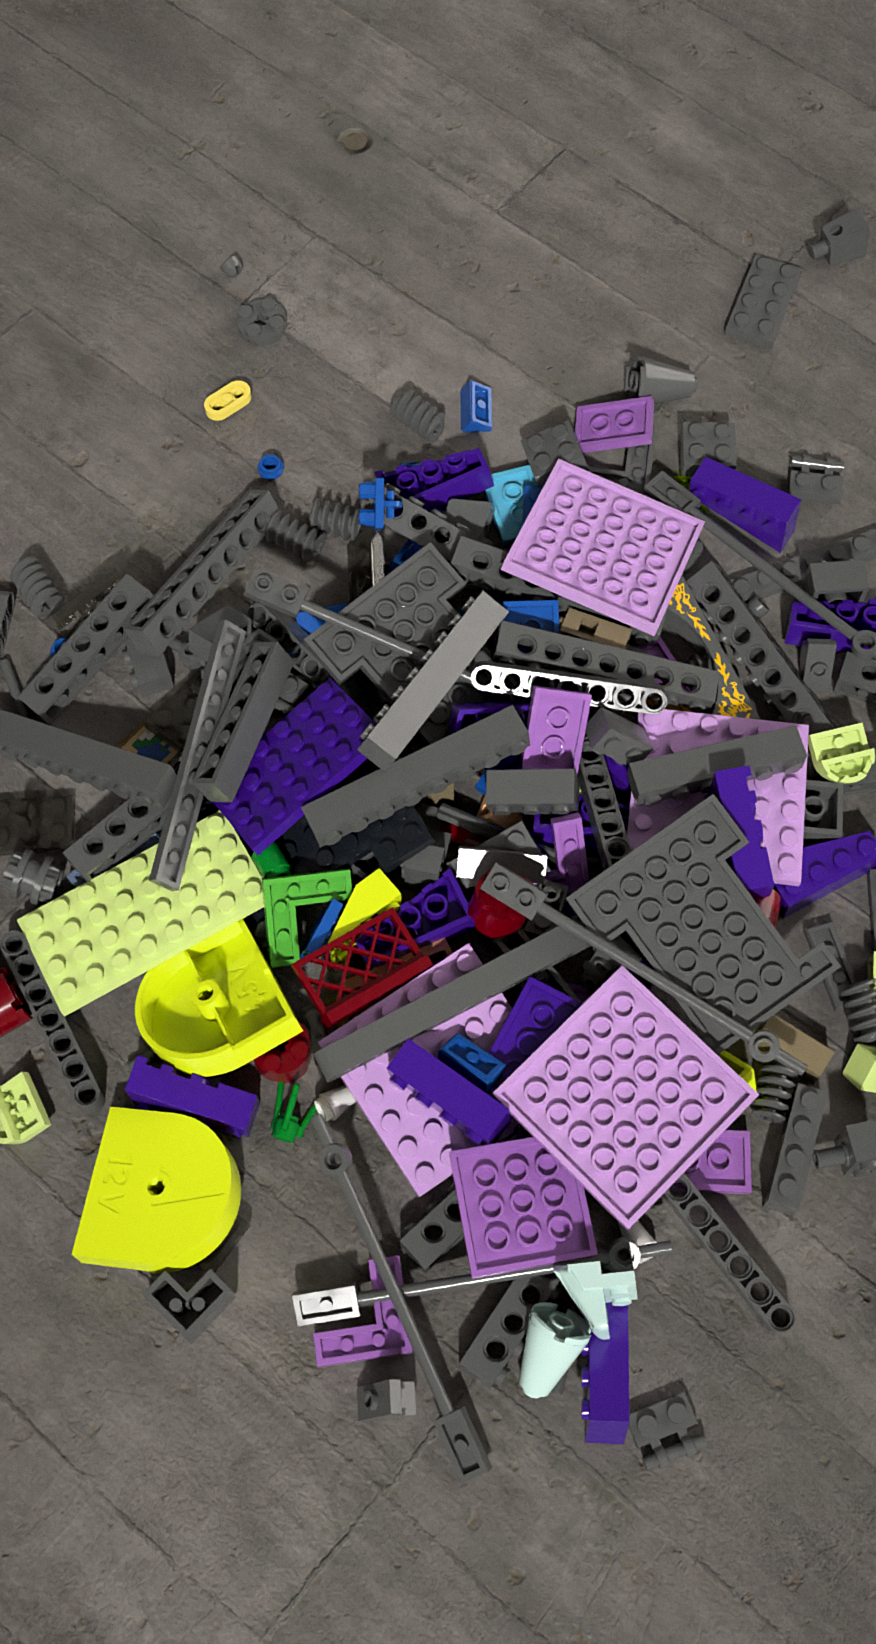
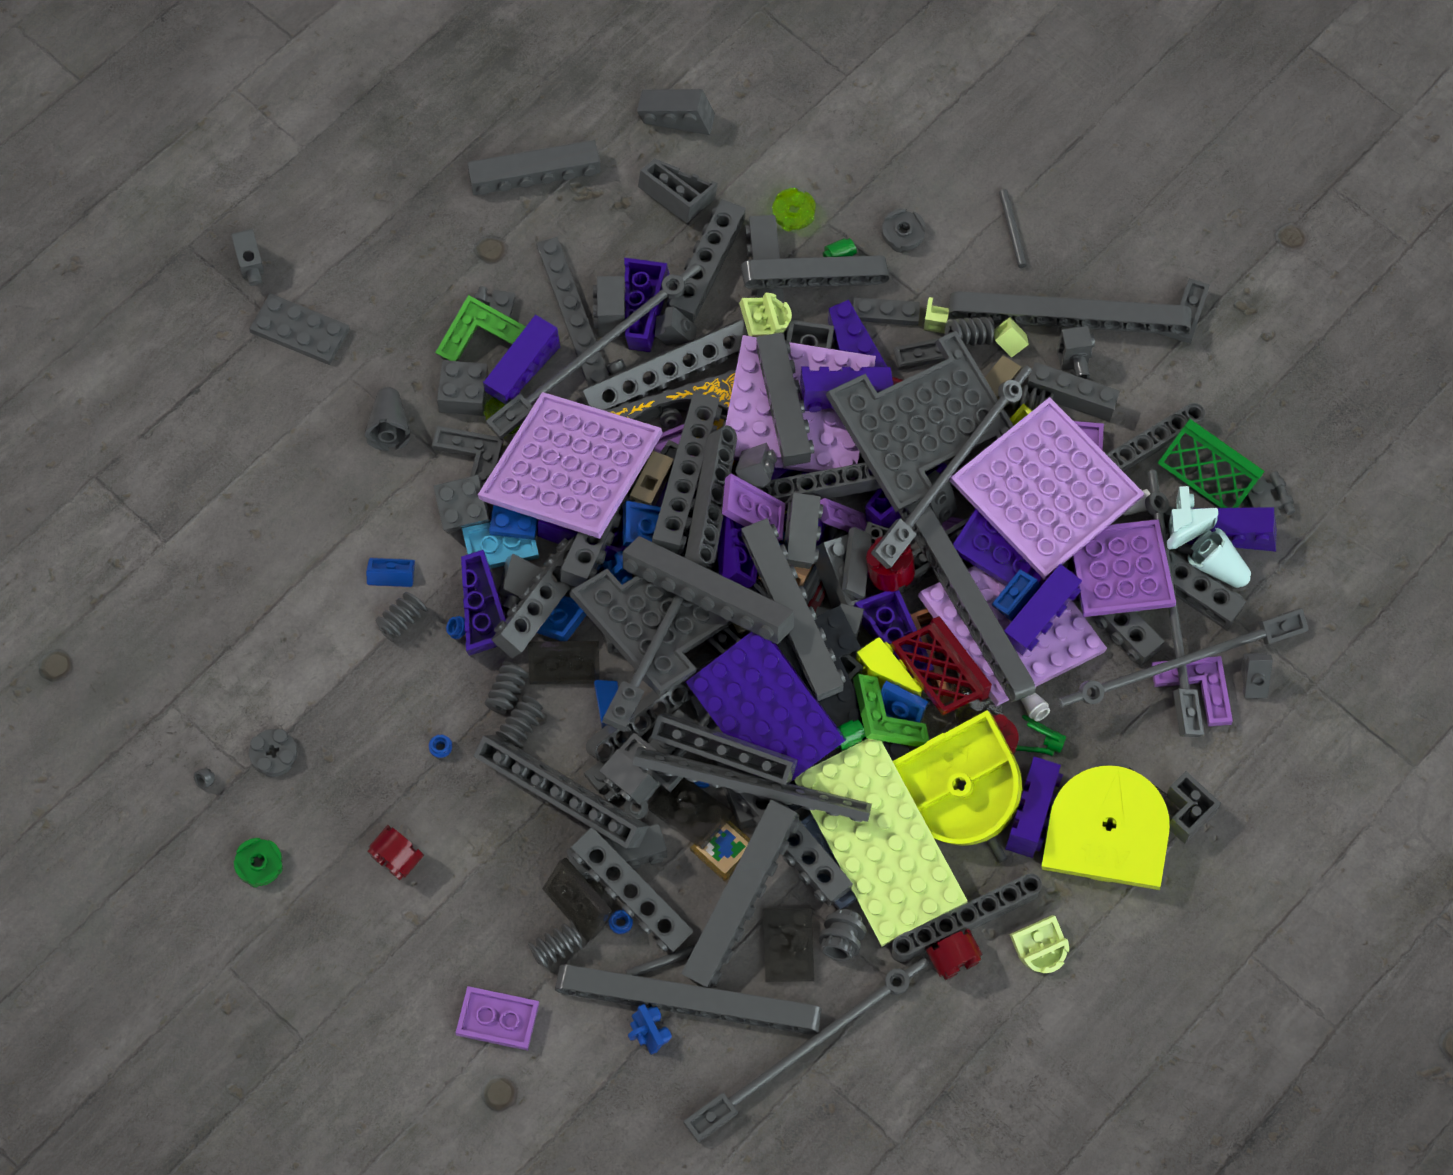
camera: 90 degrees left, 0 degrees up
(141, 427) = (395, 851): none -> dark red brick
(142, 330) = (256, 875): none -> green plate
(226, 400) = (363, 783): light yellow plate -> none
(375, 516) = (523, 632): blue hips -> none
(615, 424) = (429, 455): medium lavender plate -> none
(723, 1350) = (1223, 451): none -> green fence
(796, 449) = (474, 315): none -> bright green plate

